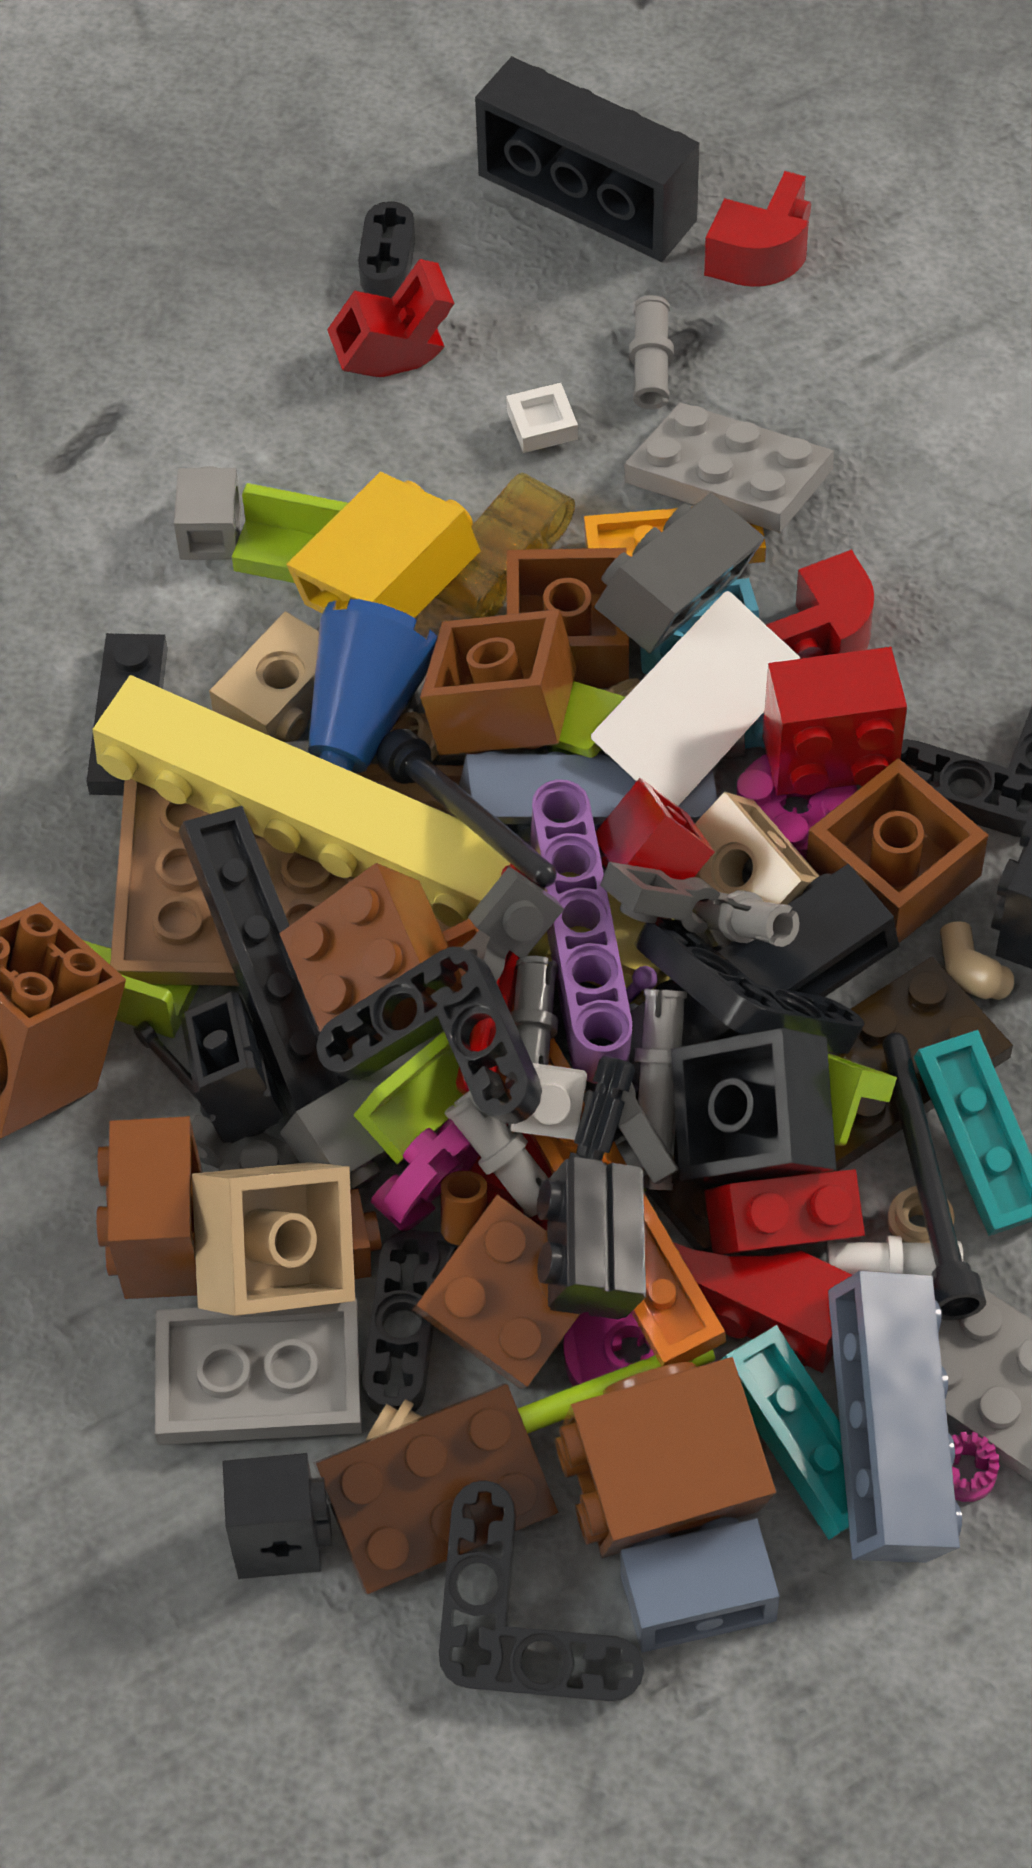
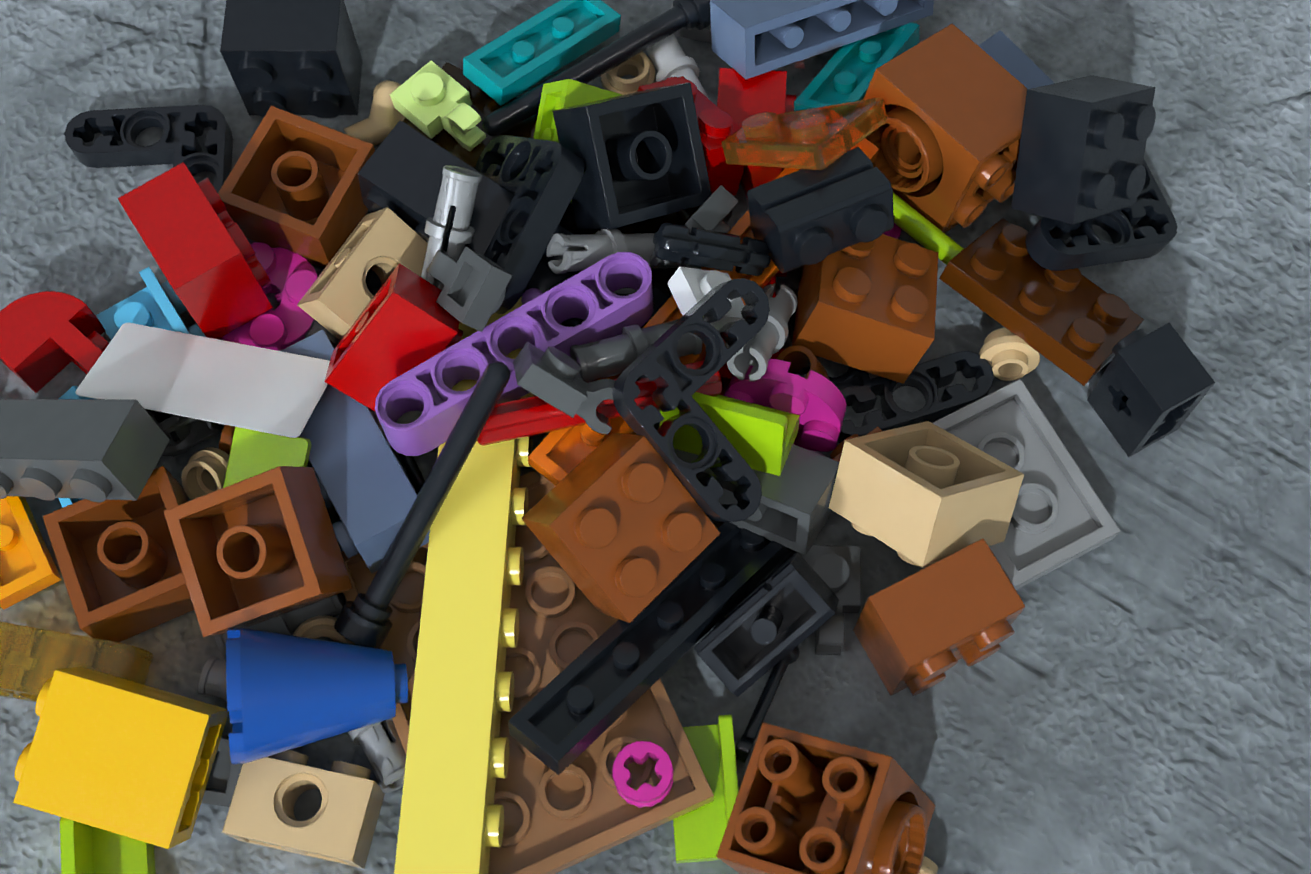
camera: 115 degrees left, 10 degrees up
(145, 929) = (646, 794): none -> dark pink bush
(558, 1554) = (1083, 148): none -> black brick
(692, 1267) = (804, 137): none -> clear orange wing
(943, 998) = (437, 103): none -> yellowish green plate

